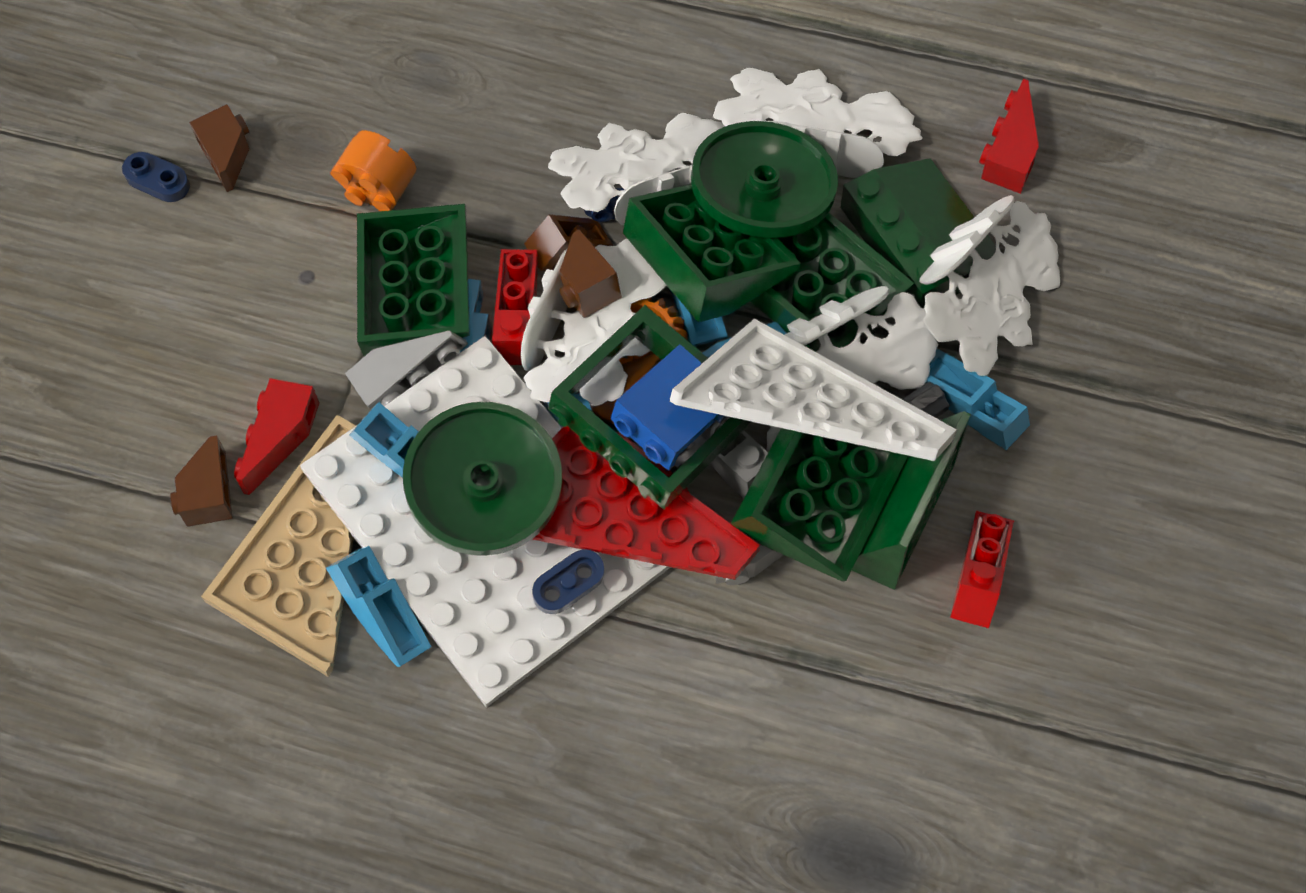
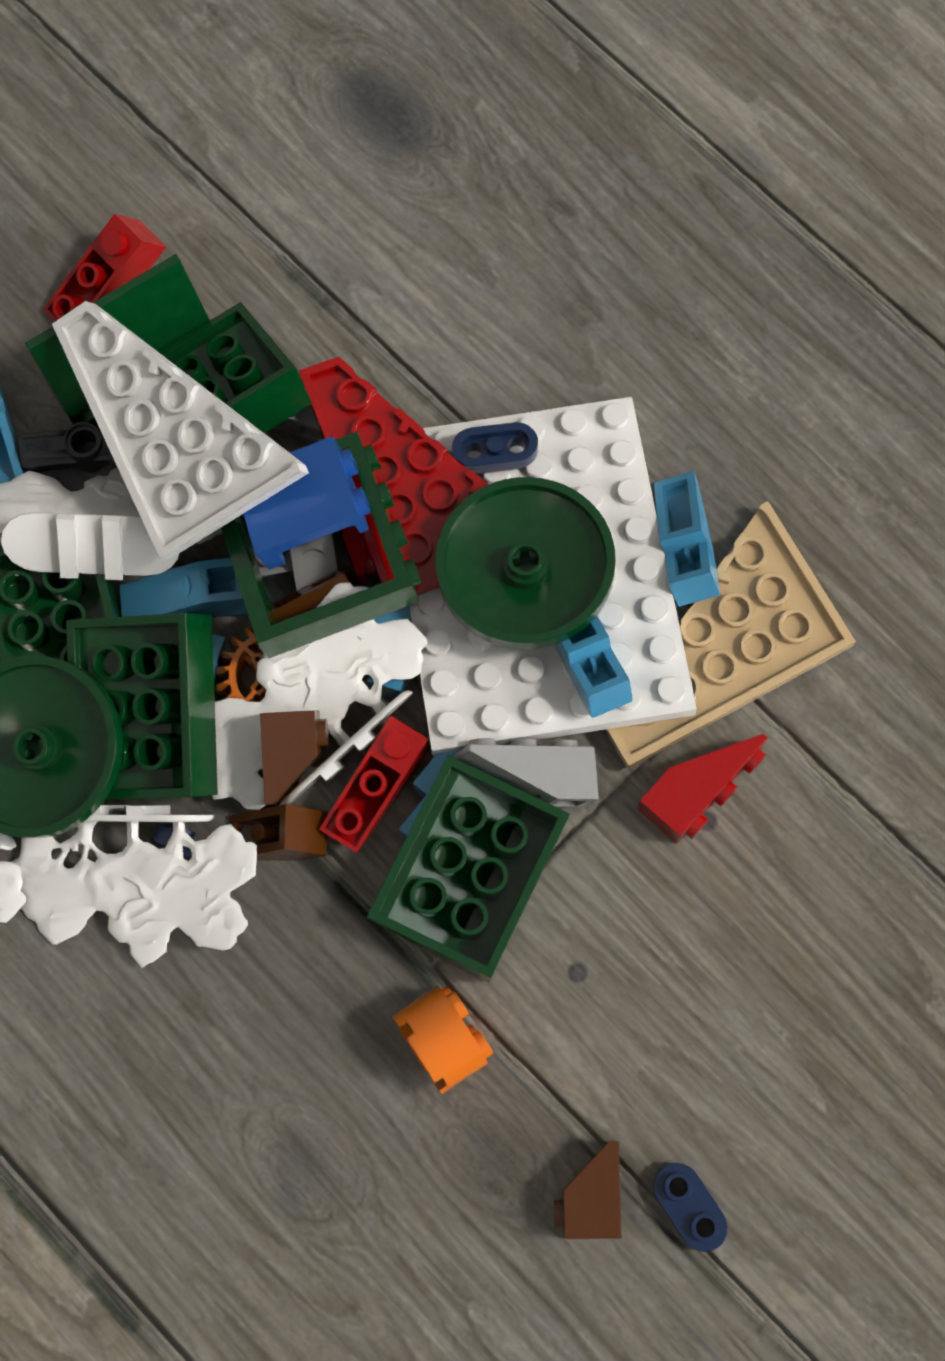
camera: 150 degrees left, 10 degrees up
(203, 486) = (803, 761): reddish brown slope -> none

